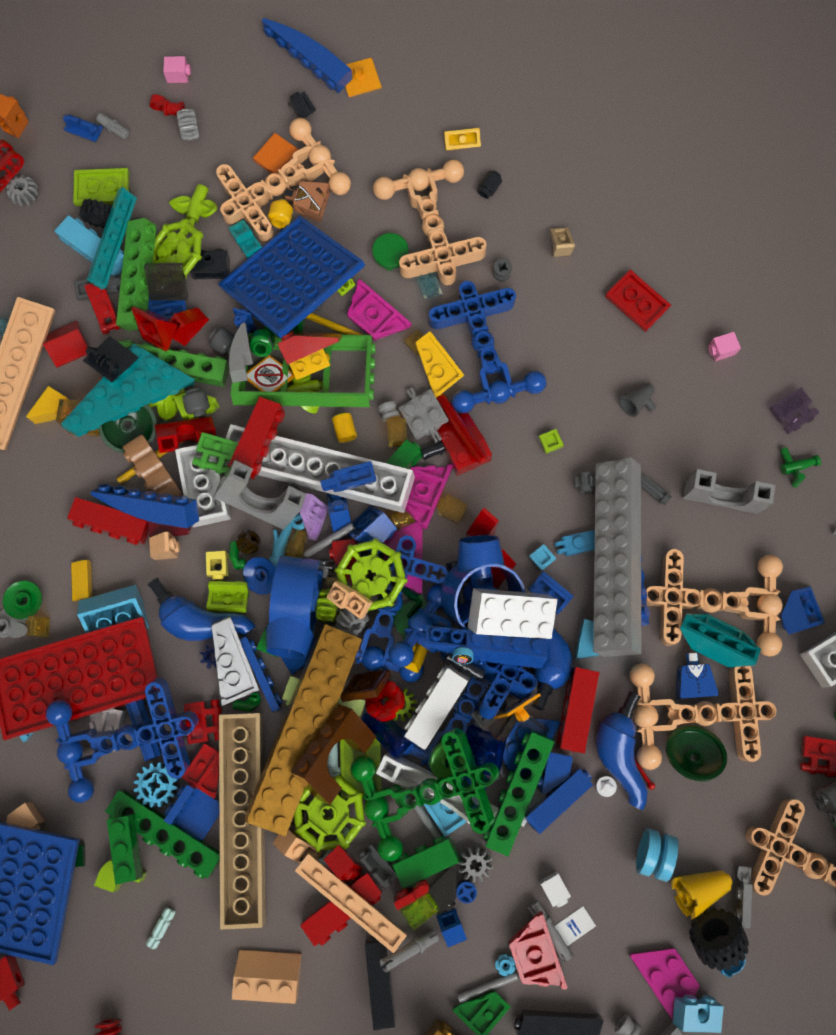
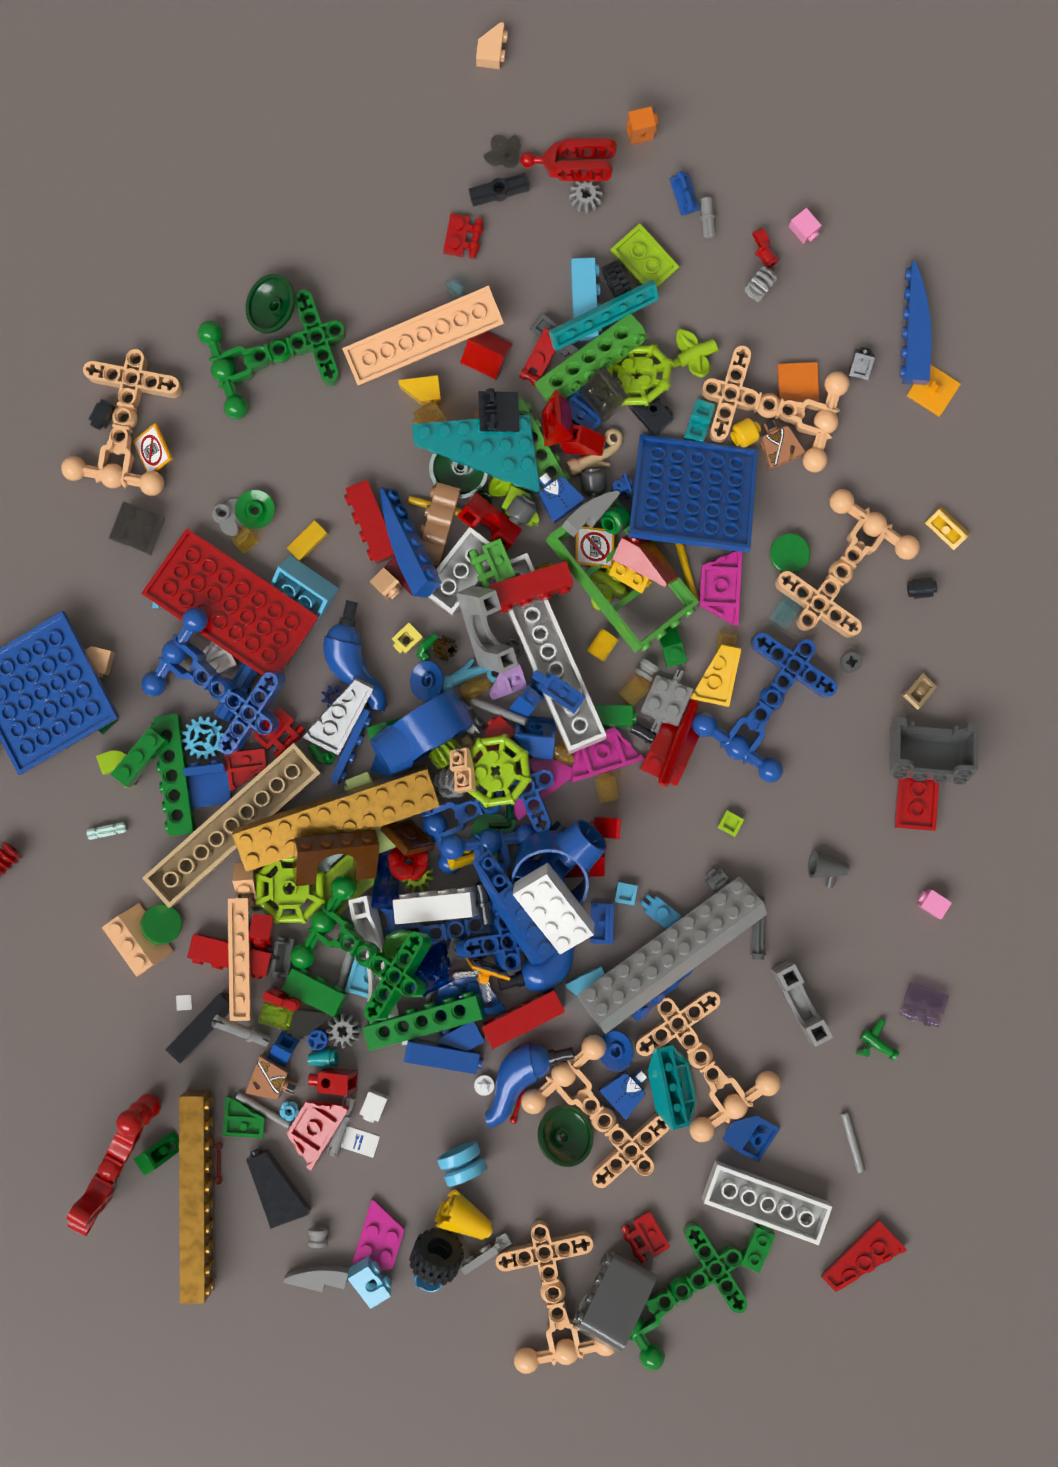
camera: 50 degrees right, 10 degrees up
(201, 344) = (575, 466): none -> tan plant
(210, 369) = (558, 497): none -> blue torso
(227, 596) = (389, 669): lime bracket -> none
(271, 946) = (161, 924): none -> green tile
(348, 980) = (183, 1002): none -> white sticker
(389, 381) = (672, 648): none -> green slope
(462, 655) = (488, 896): medium azure tile -> none
(467, 960) = (270, 1079): none -> nougat torso
(486, 898) = (324, 1058): none -> teal cone
(516, 900) = (334, 1081): none -> red torso
(614, 260) = (933, 752): none -> dark grey windscreen
(662, 669) = (612, 1058): none -> blue dish

